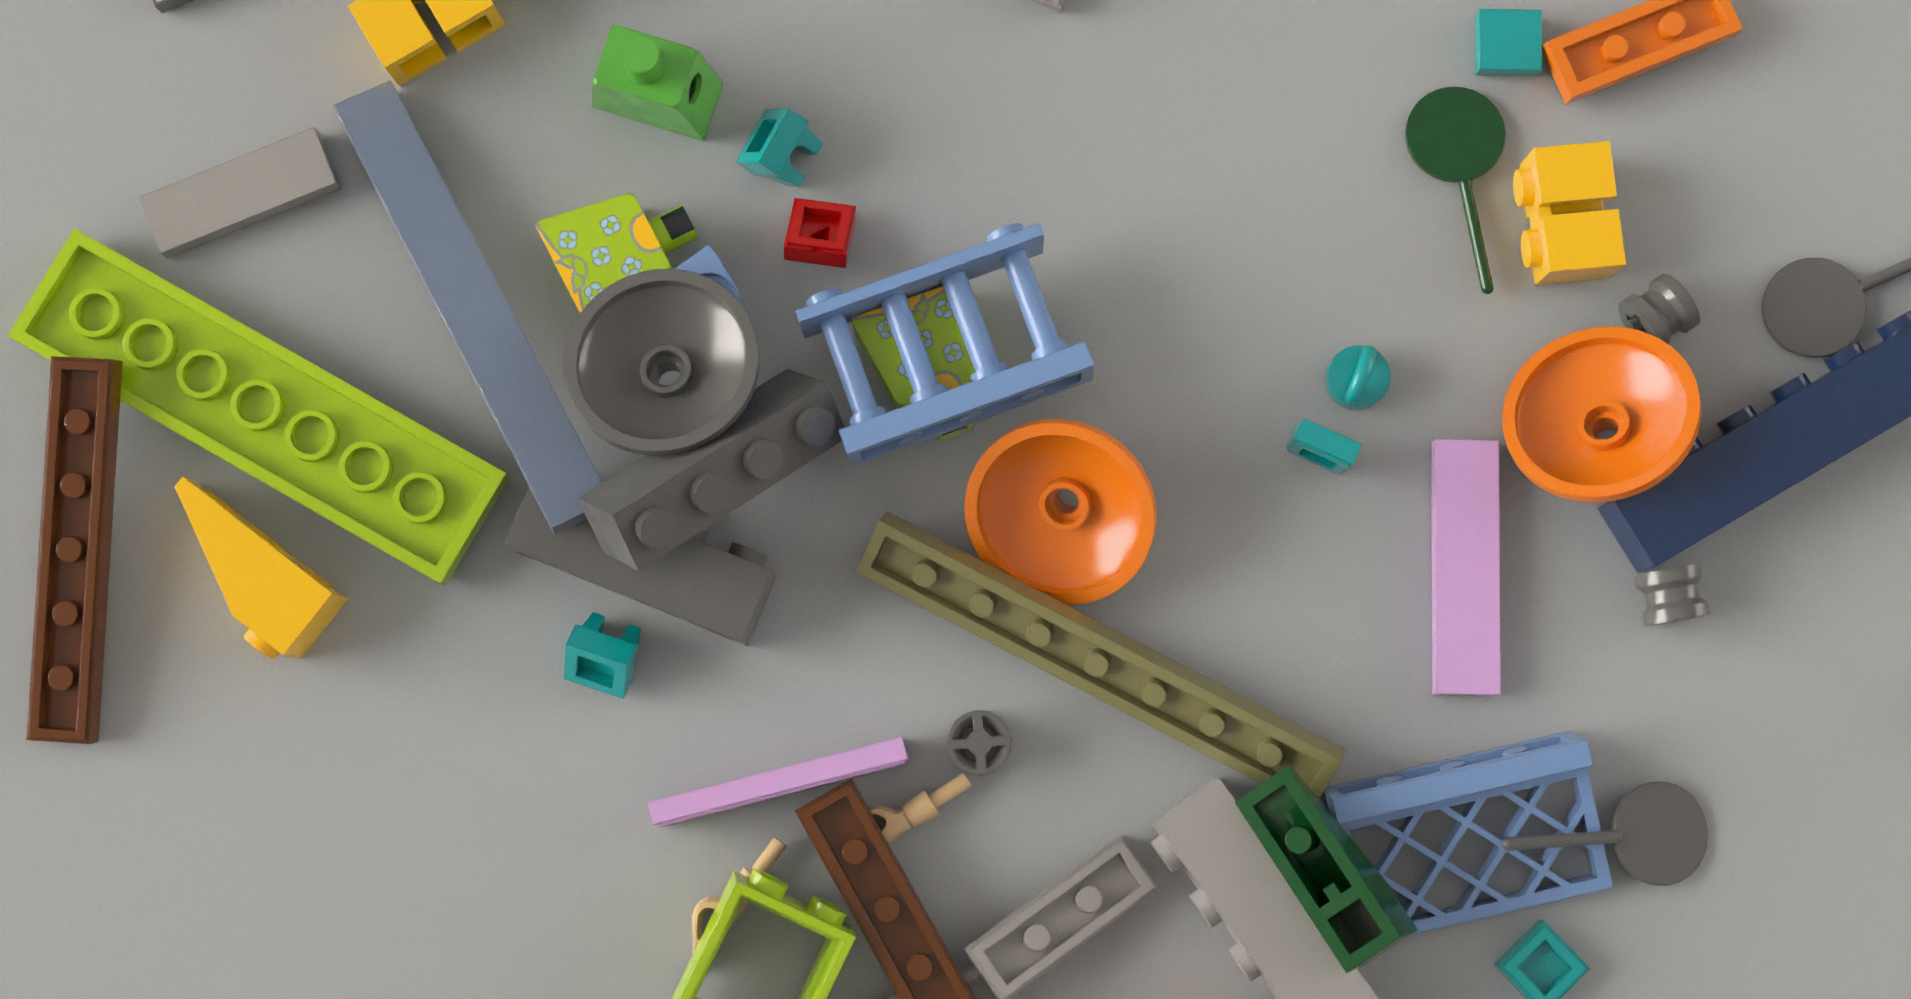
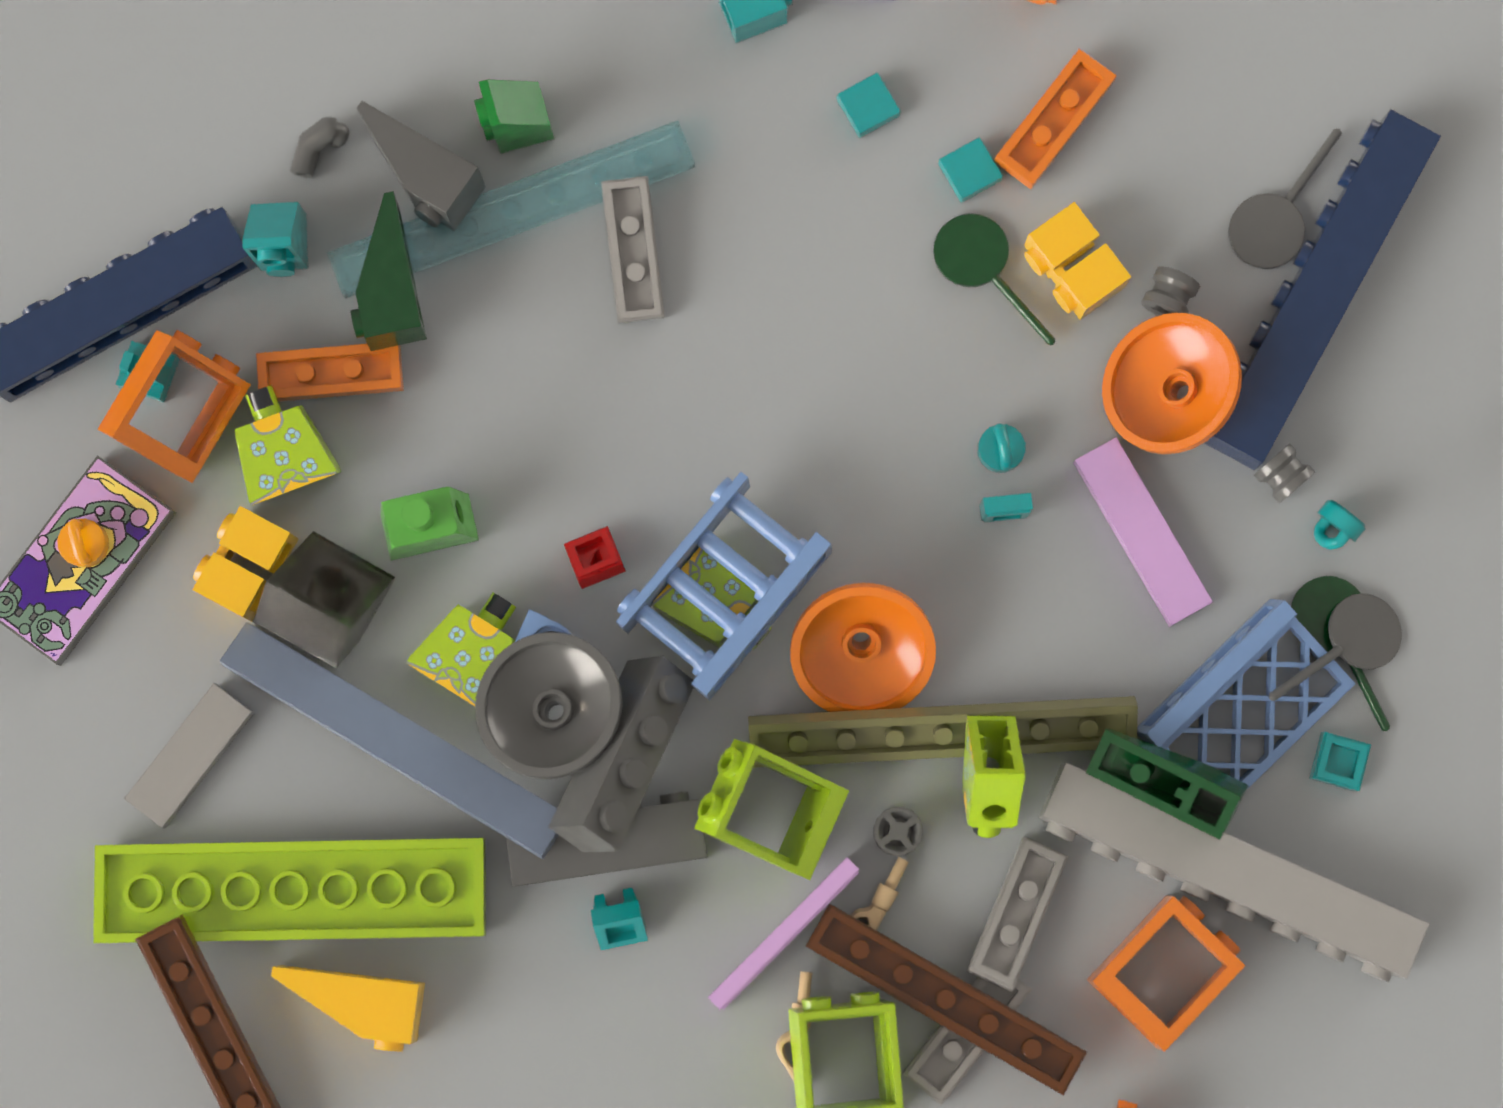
camera: 30 degrees left, 0 degrees up
(488, 102) = (323, 599): none -> clear smoke slope
(772, 143) = (529, 516): teal tile -> none
(884, 675) = (809, 826): none -> lime window
(1111, 760) = (992, 794): none -> lime torso
(1615, 771) = (1314, 607): none -> dark green piece
(1707, 686) = (1341, 519): none -> teal tile

